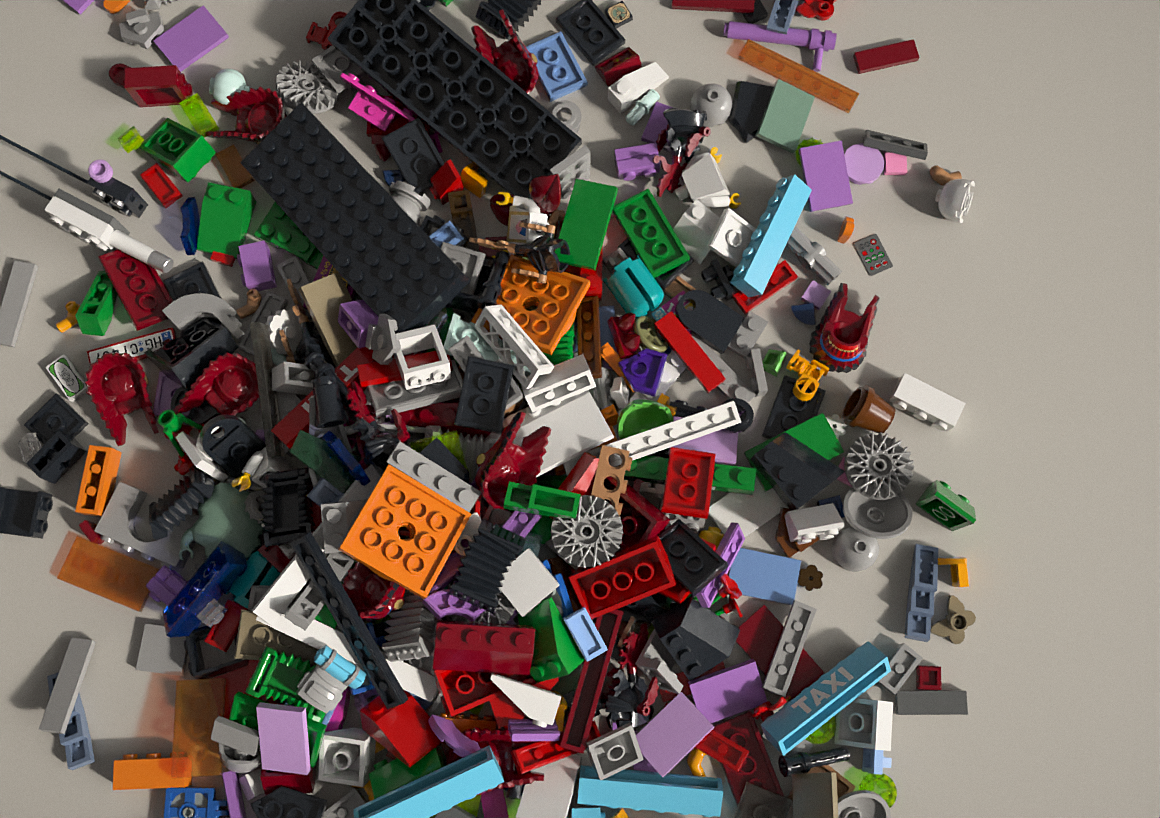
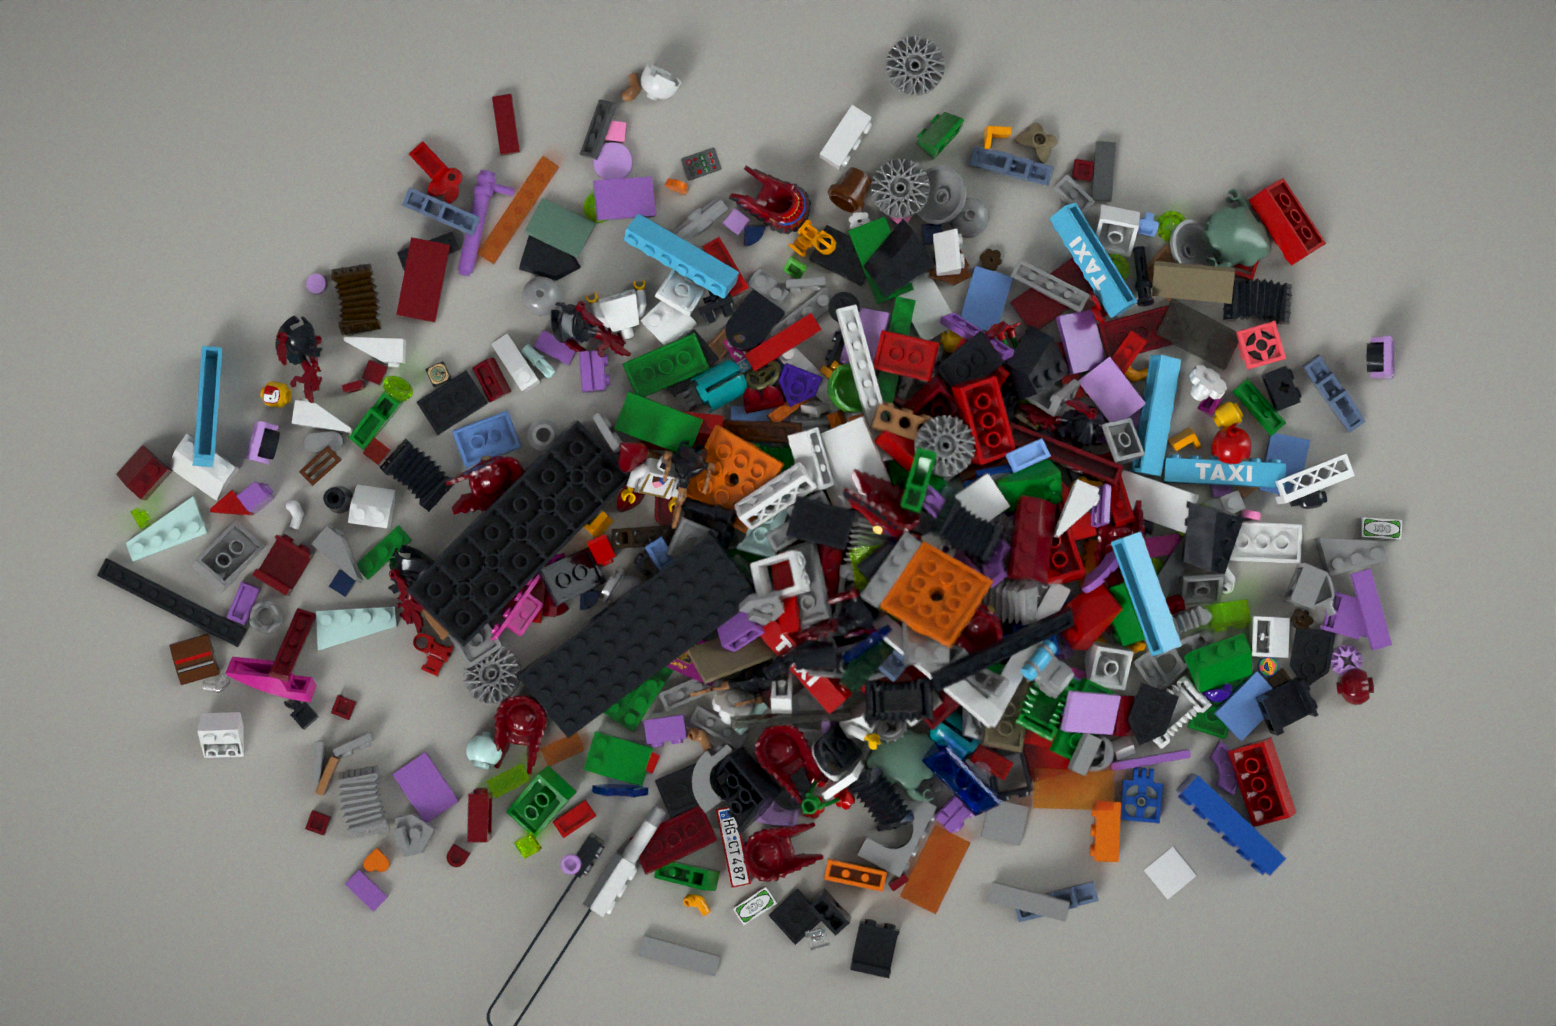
camera: 85 degrees left, 10 degrees up
(1033, 463) = (918, 51): none -> light grey wheel

